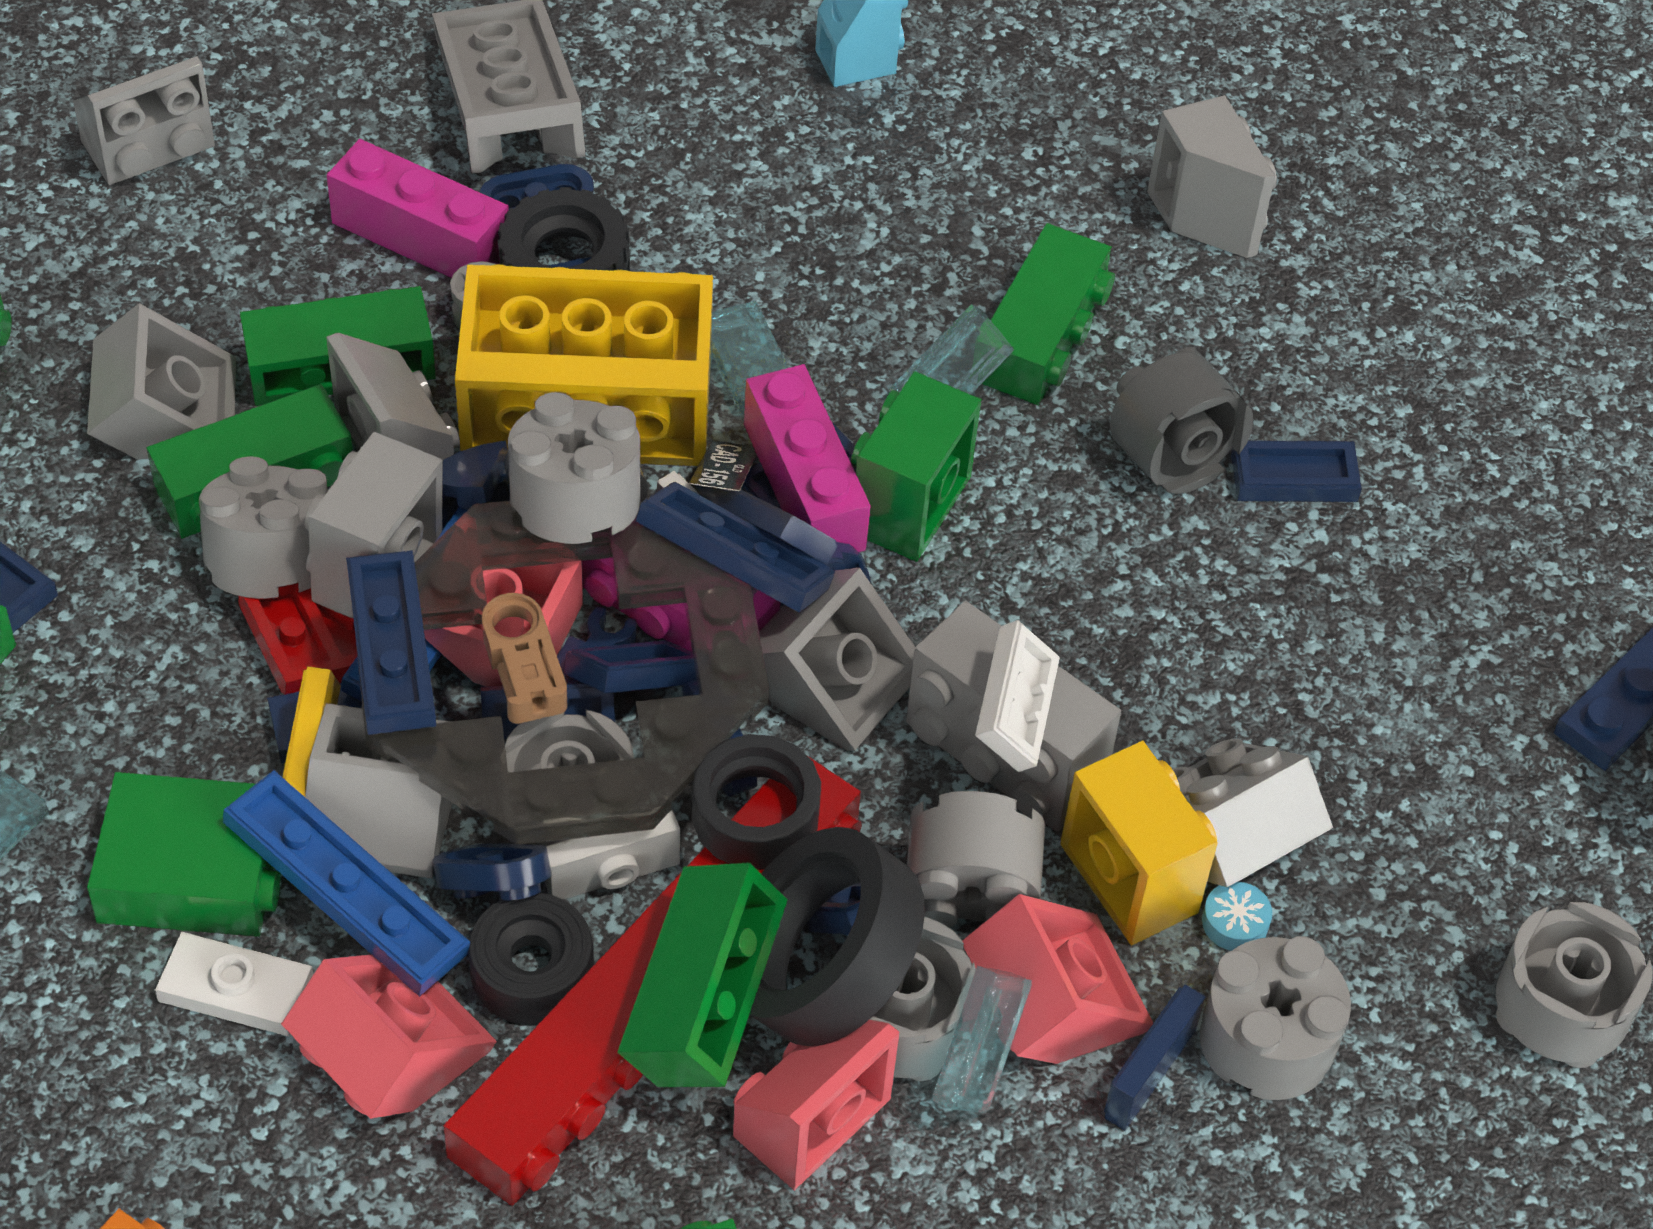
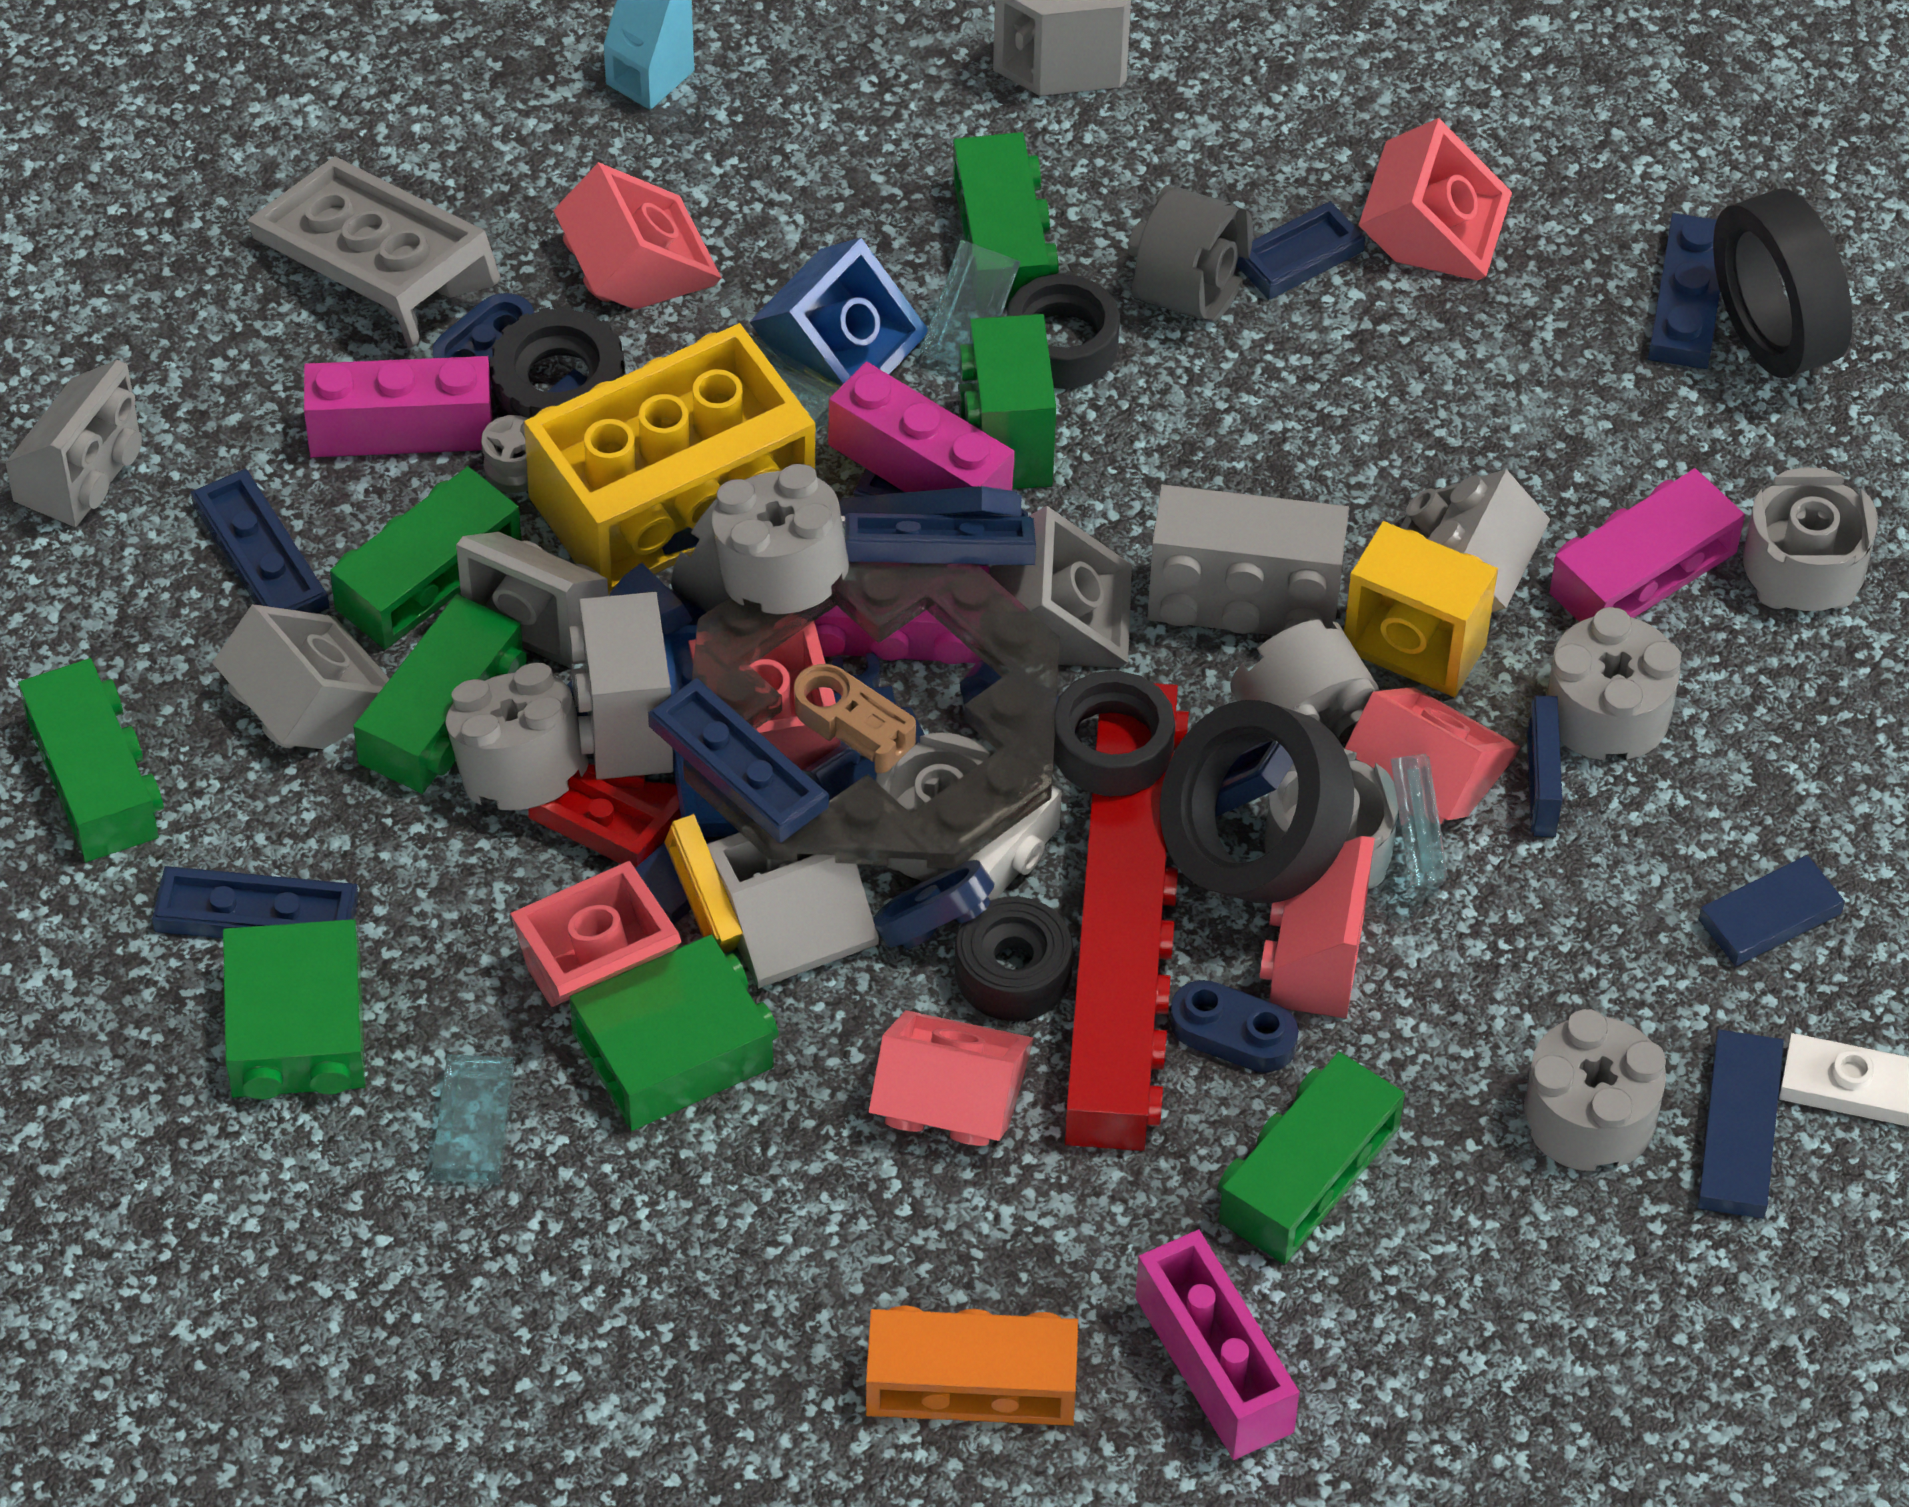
camera: 30 degrees left, 0 degrees up
(179, 728) = (592, 932): none -> coral slope
(225, 271) = (258, 545): none -> dark blue tile
(232, 982) = (791, 1110): white plate -> none
(346, 882) = (833, 975): blue tile -> none
(631, 666) = (924, 680): dark blue tile -> none
(674, 1134) = (1232, 1025): none -> dark blue plate
(703, 976) = (1187, 882): green brick -> none
(723, 178) = (633, 240): none -> coral slope
(724, 465) = (855, 484): black sticker -> none
(840, 327) = (841, 314): none -> blue slope
(1017, 696) = (1272, 534): white plate -> none
(1039, 400) = (1080, 299): none -> black tyre
(1236, 915) = (1521, 630): medium azure tile -> none
(1409, 908) = (1648, 549): none -> dark pink brick
(1447, 492) = (1435, 203): none -> coral slope

